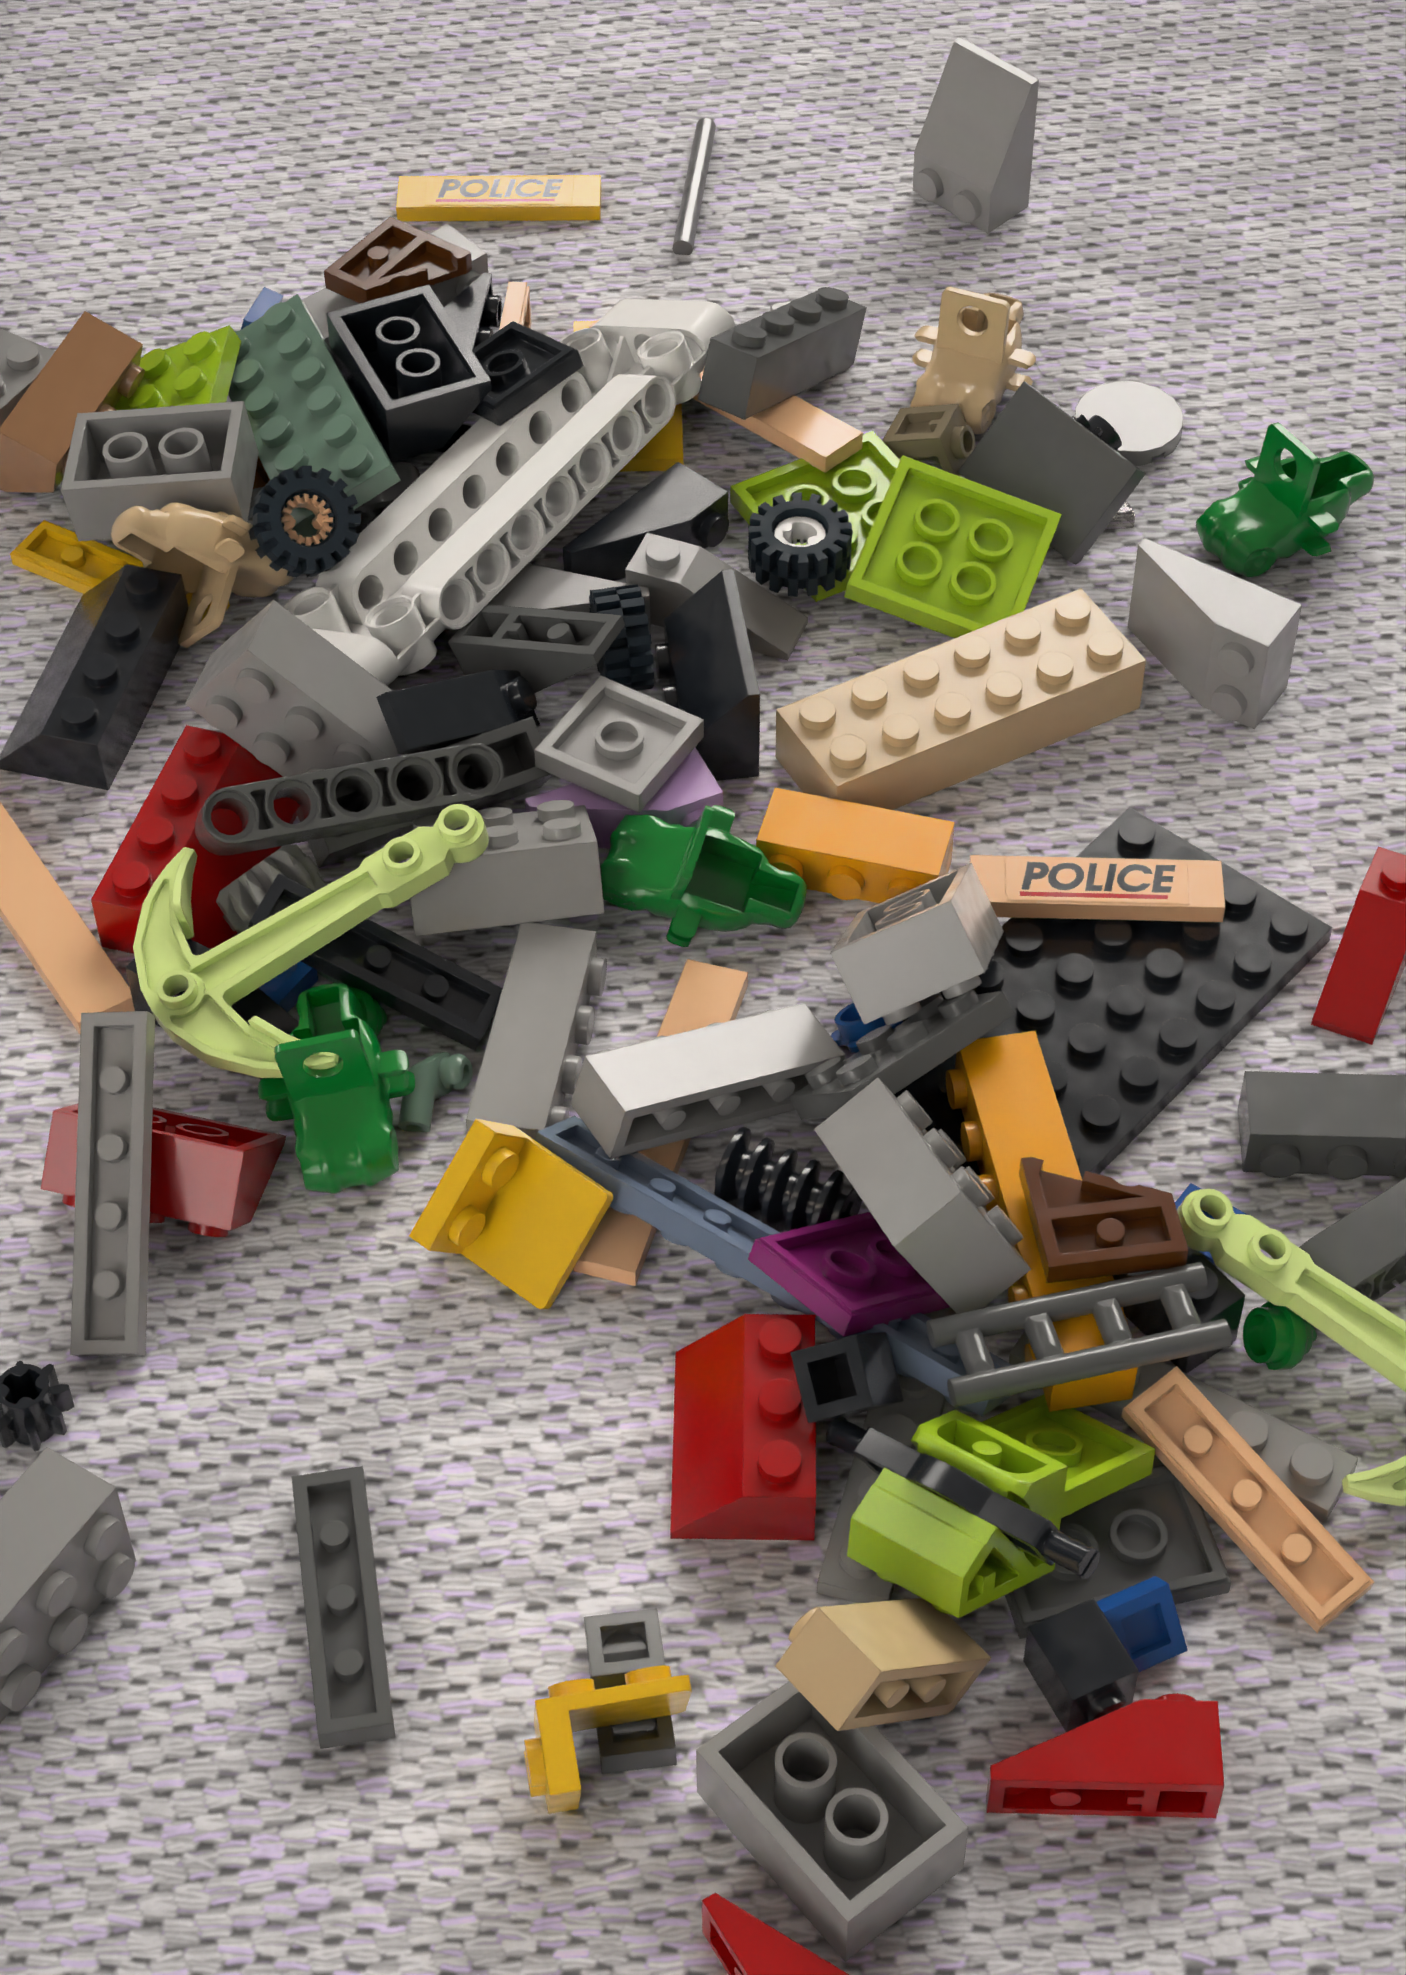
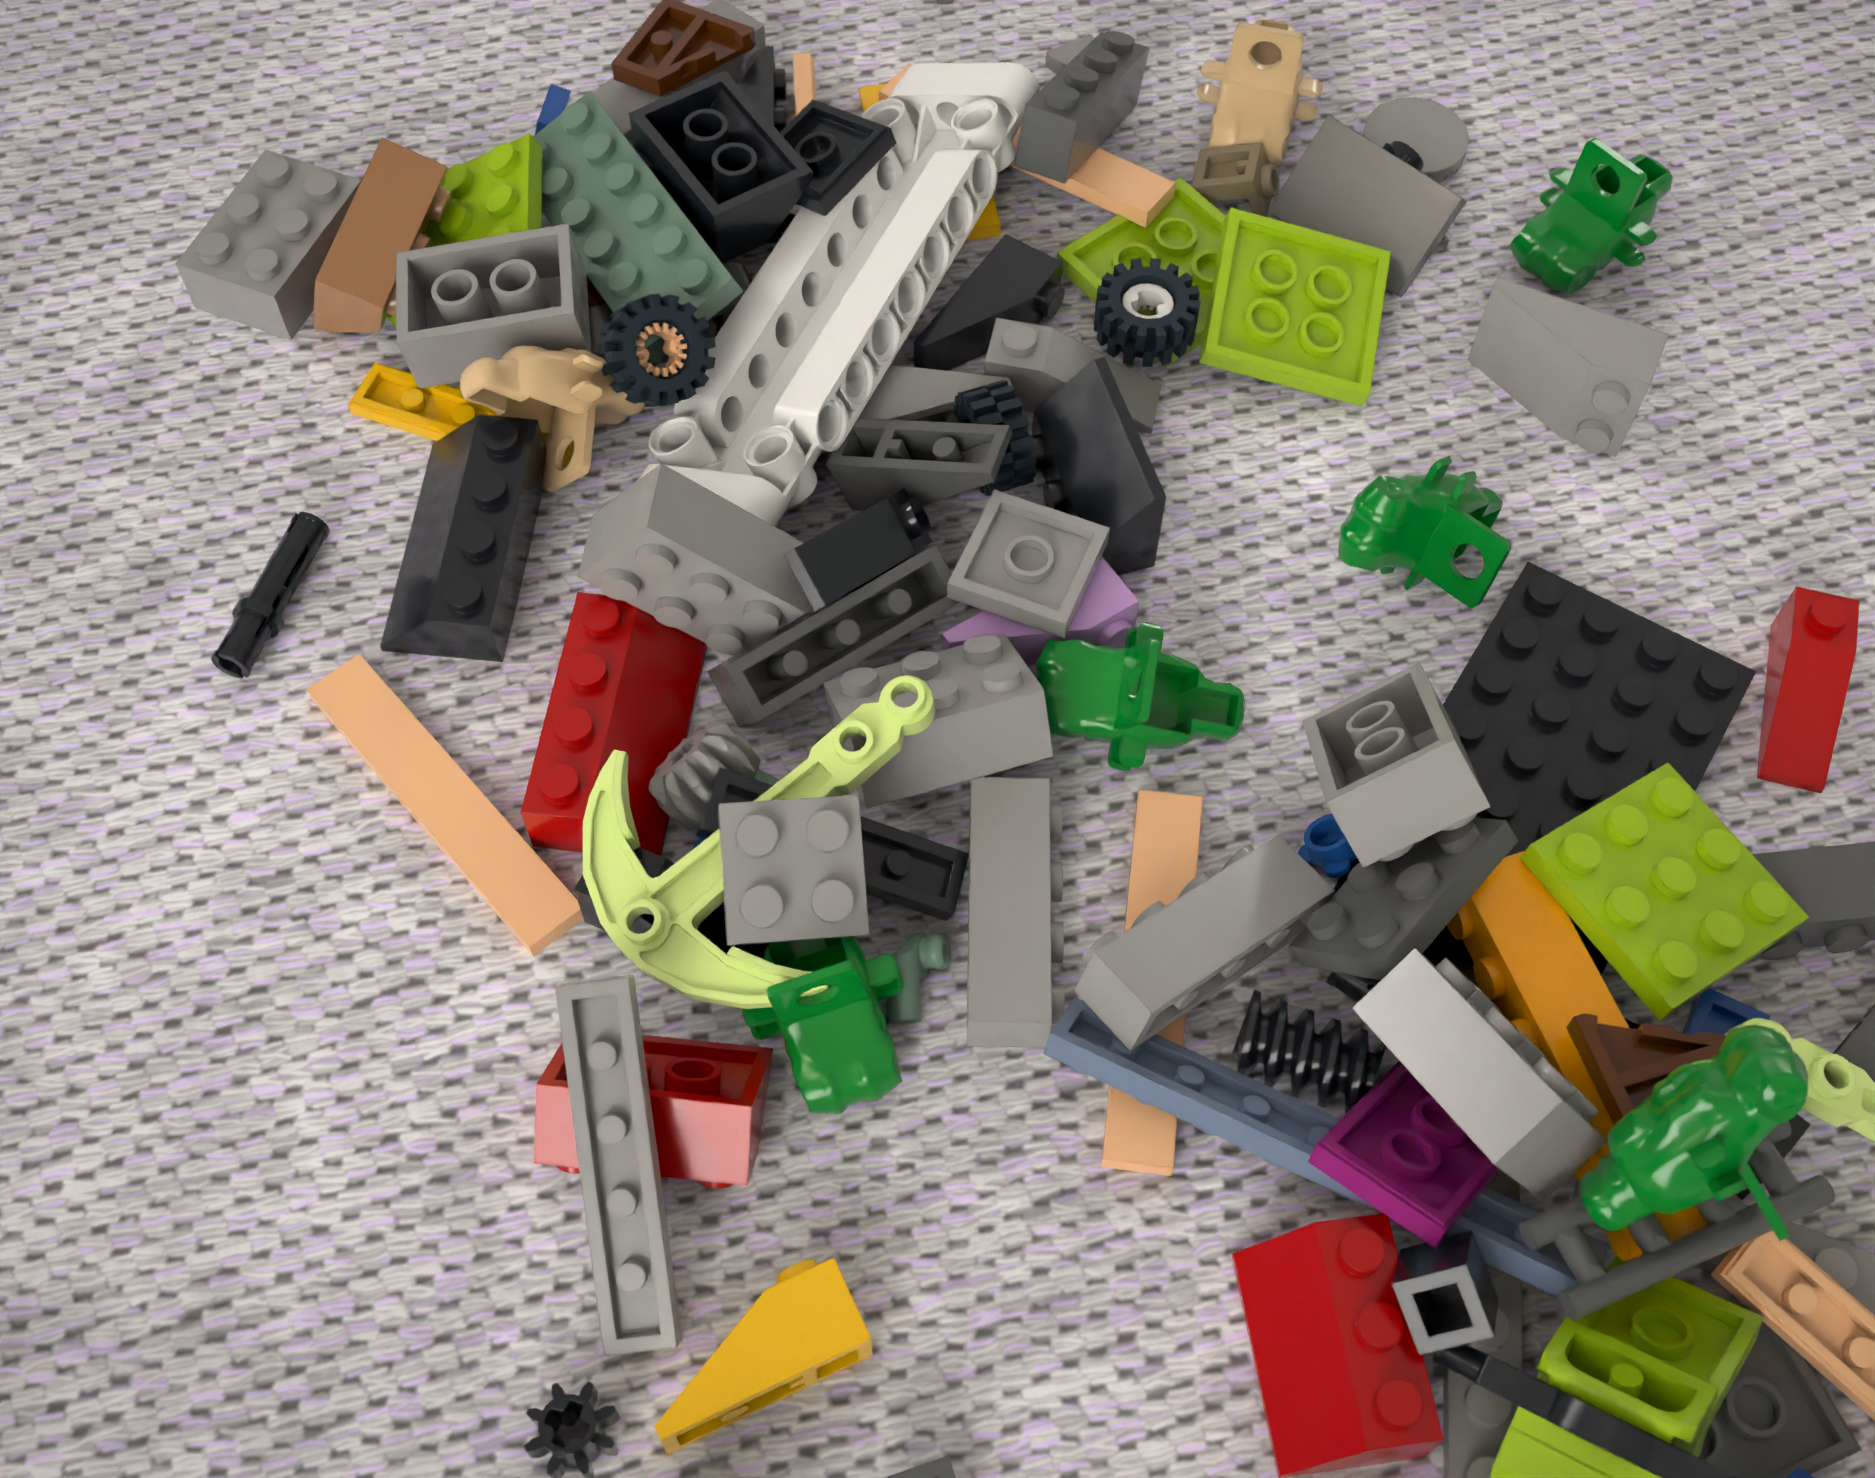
camera: 10 degrees left, 10 degrees up
(225, 1366) = (782, 1345): none -> yellow slope
(323, 814) = (803, 661): dark grey beam -> none
(323, 959) = (793, 870): none -> light grey plate
(513, 1211) = (1046, 1125): yellow bracket -> none
(853, 846) = (1280, 644): light orange brick -> none
(962, 706) = (1282, 505): tan brick -> none
(1022, 757) = (1424, 528): none -> green piece
(1084, 1240) = (1699, 1133): none -> green piece
(1102, 888) = (1537, 661): light nougat tile -> none
(1156, 1080) = (1663, 889): none -> lime plate
(1277, 1336) = (1830, 1152): green plate -> none

